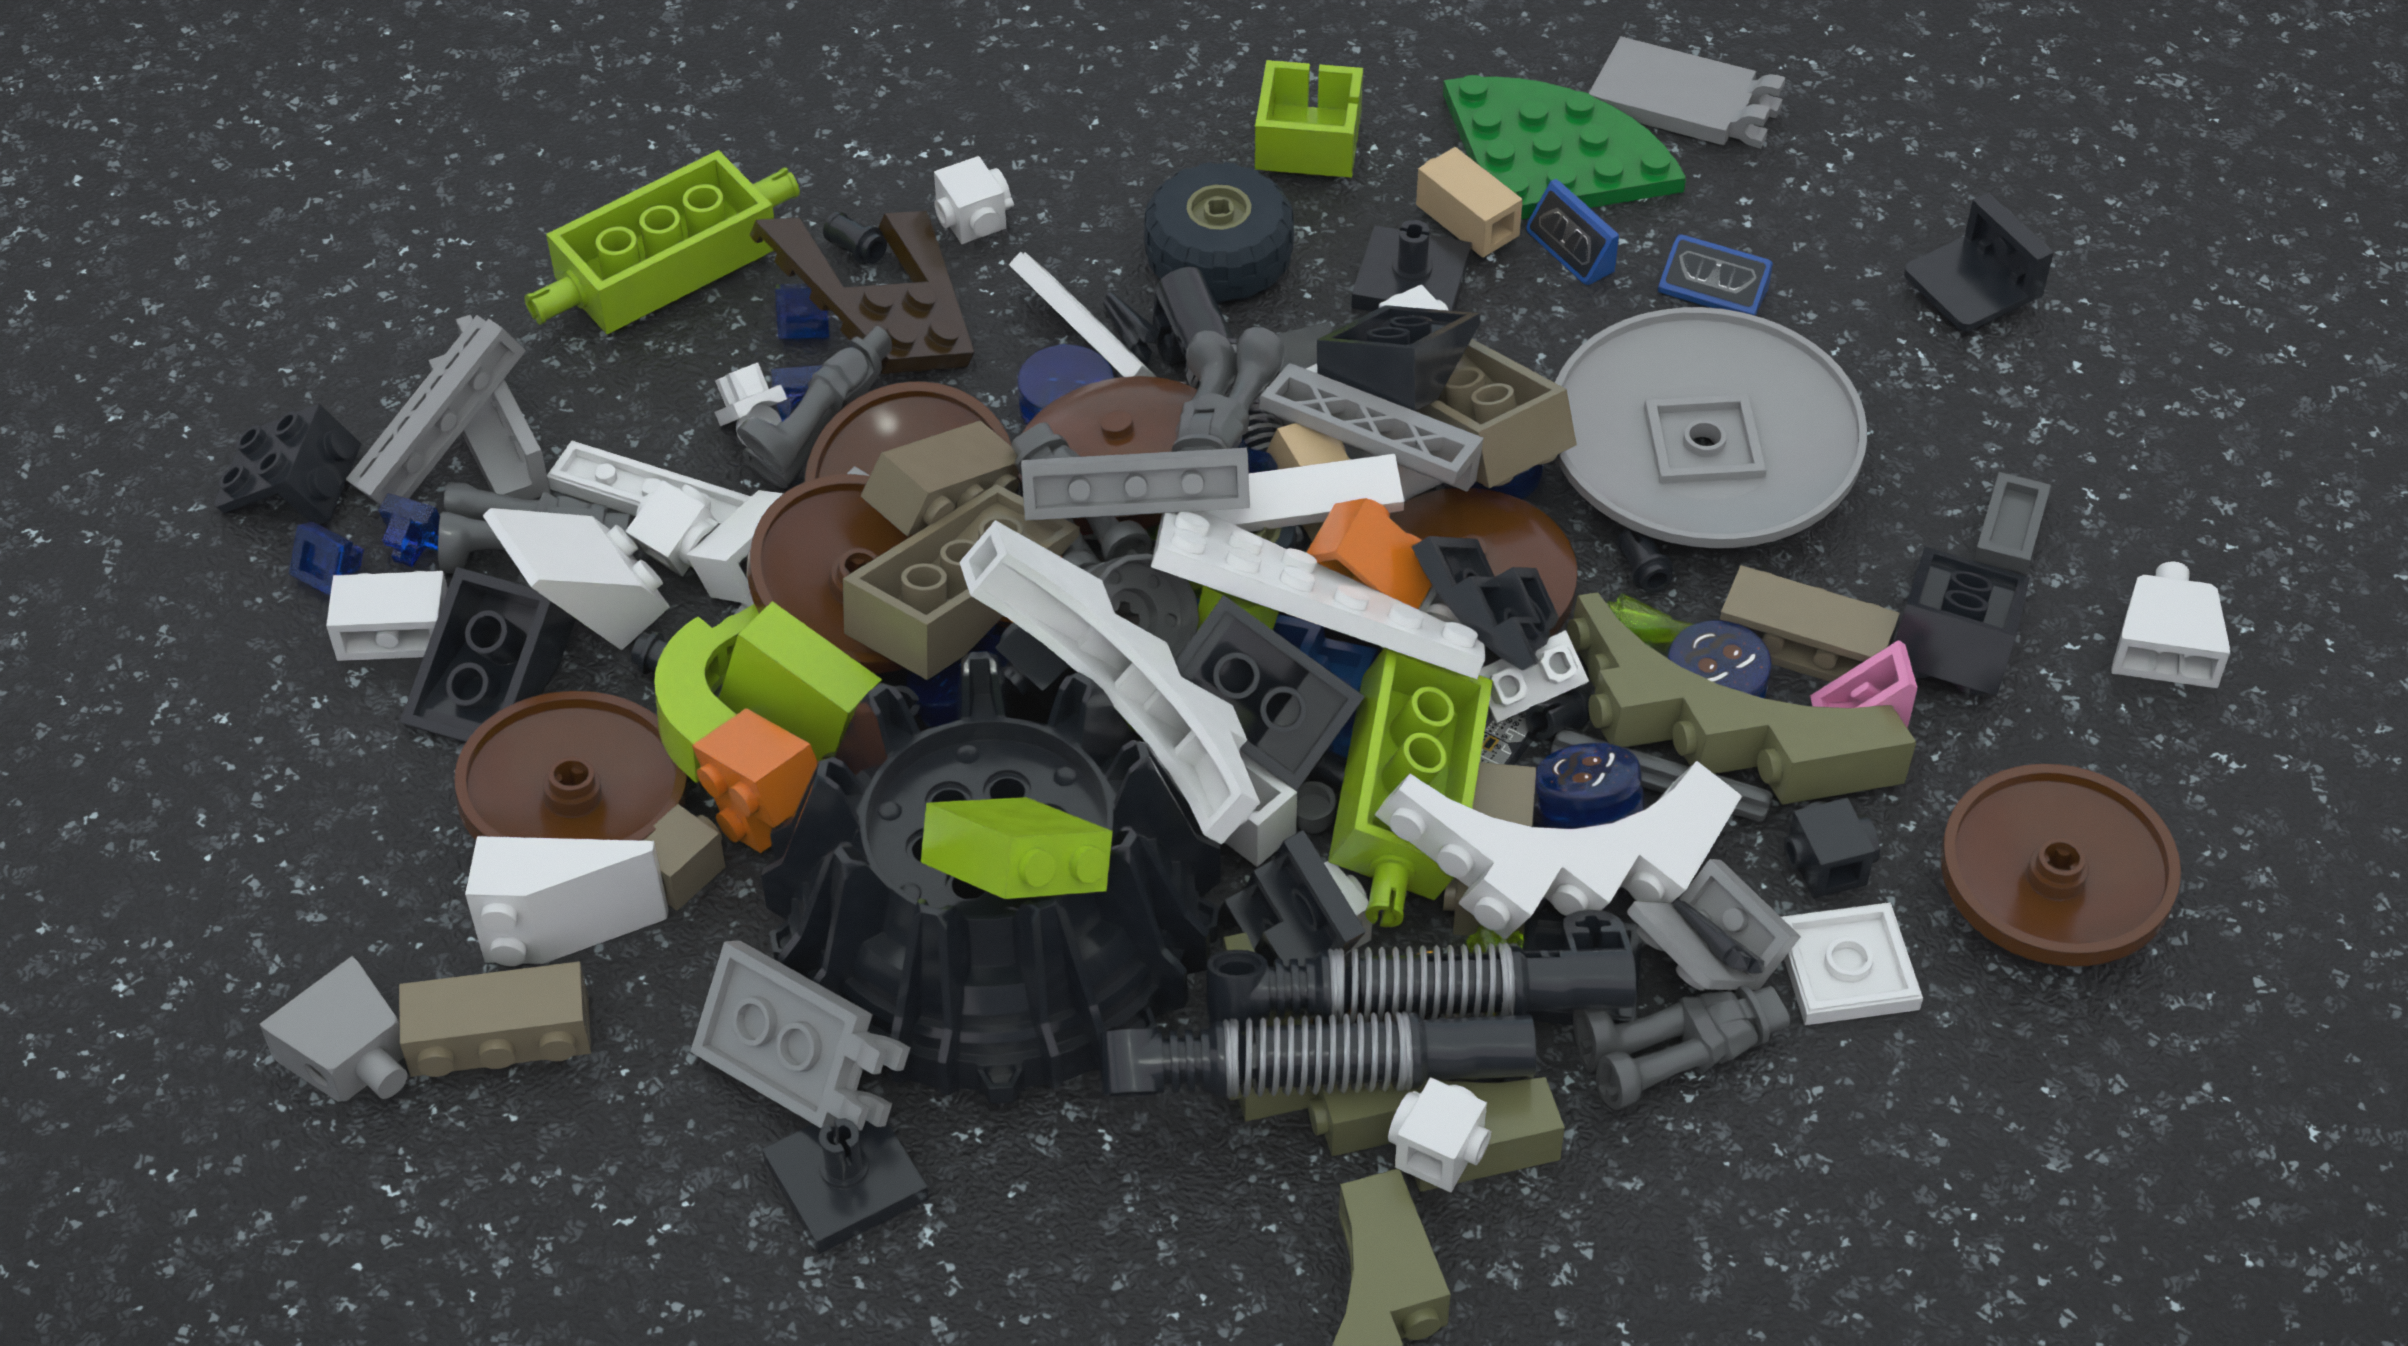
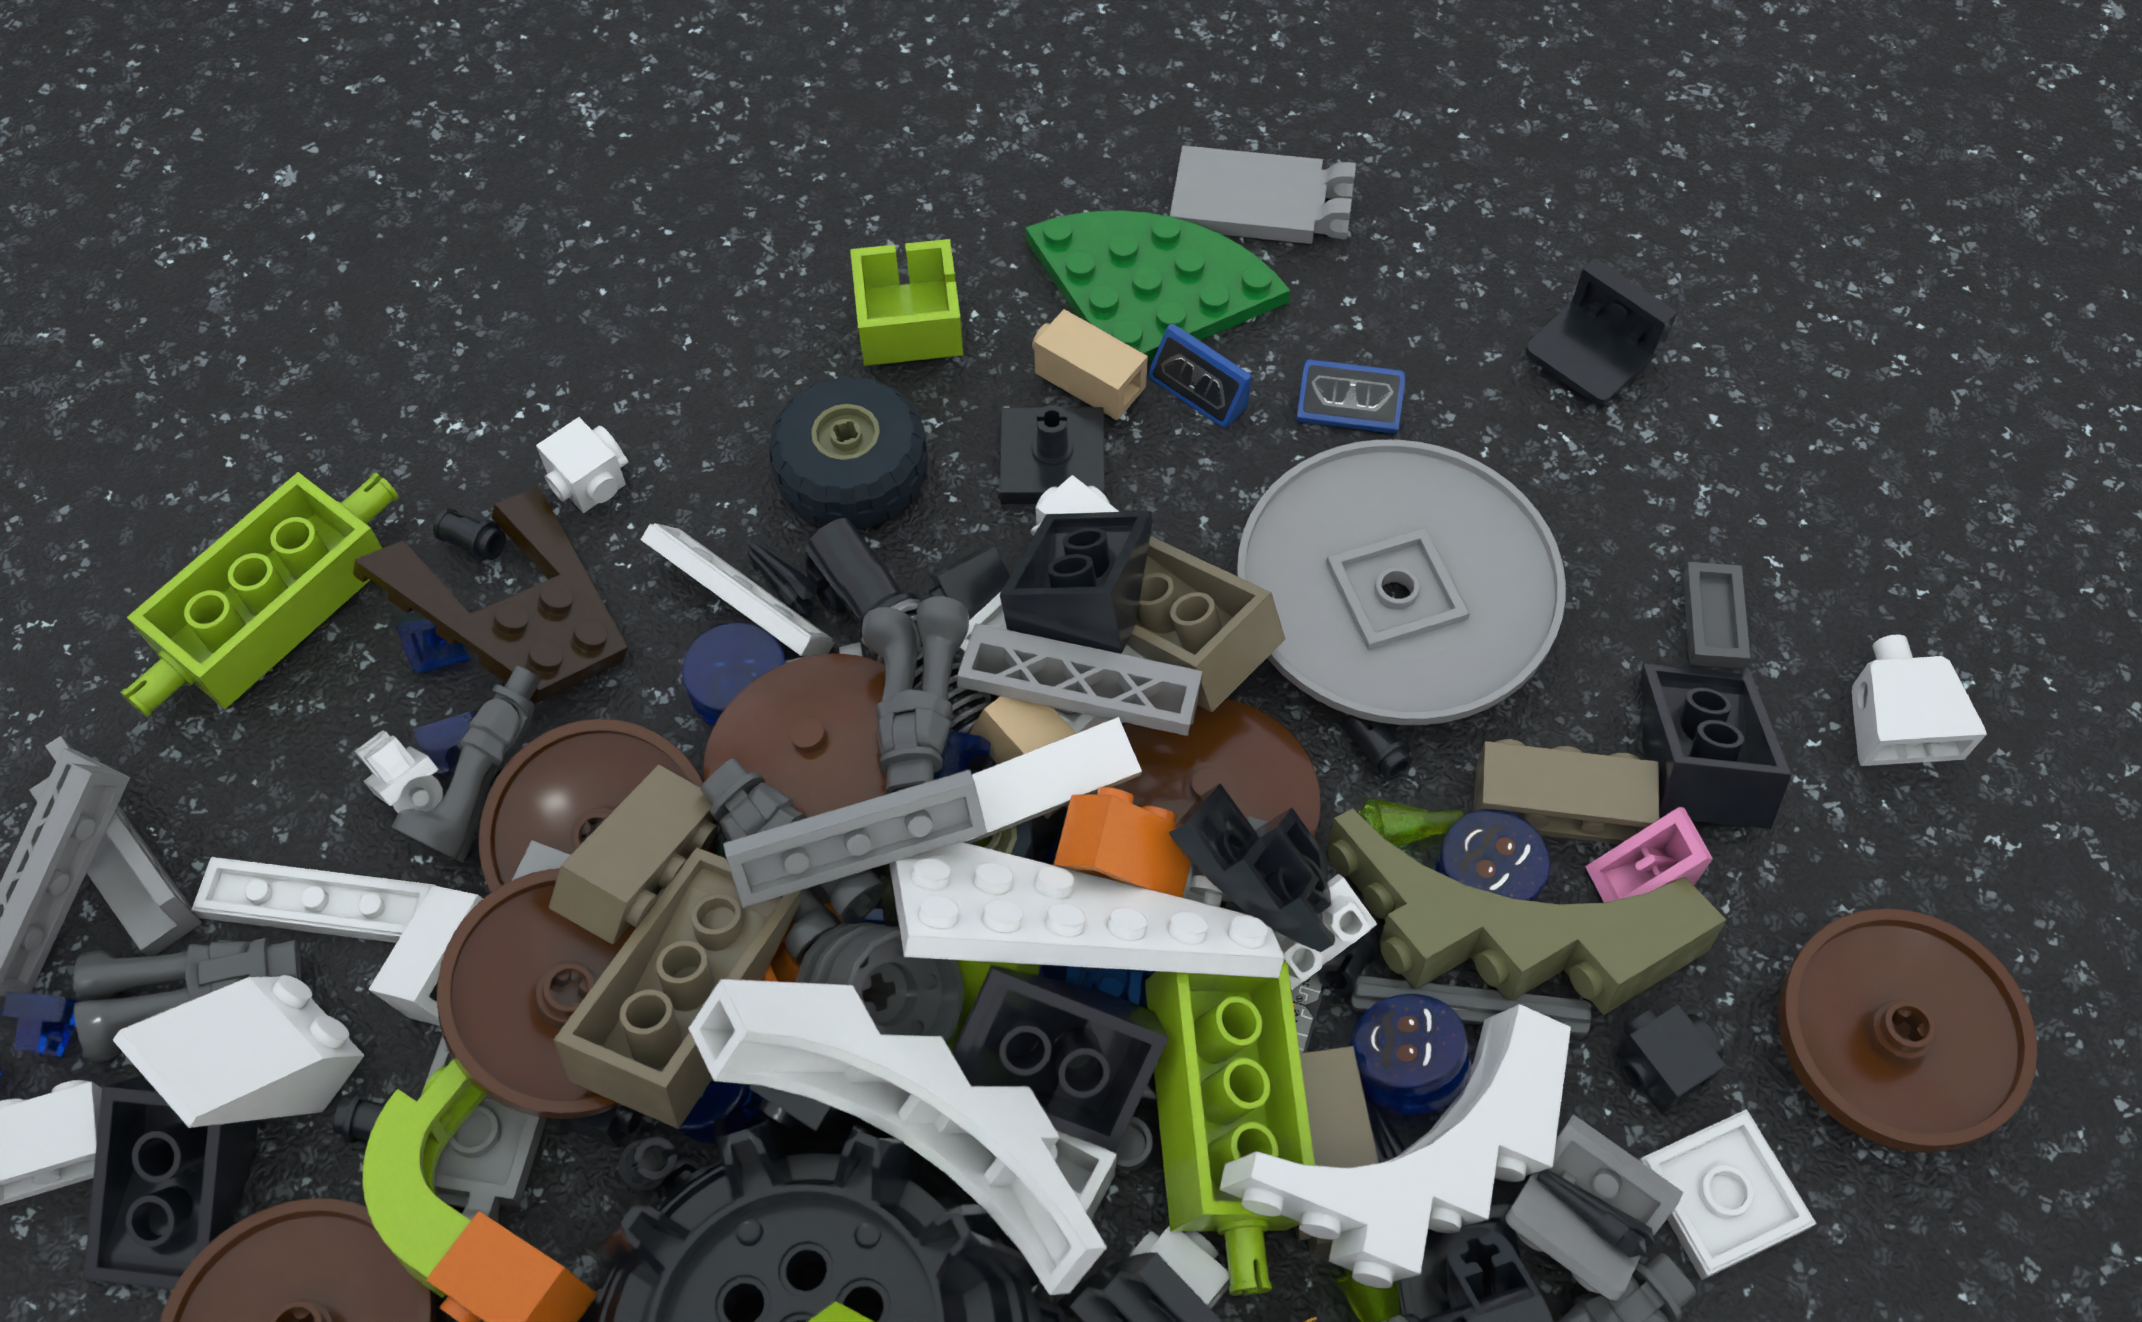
camera: 15 degrees left, 10 degrees up
(671, 525) = (345, 950): white brick -> none
(795, 679) = (535, 1158): lime brick -> none

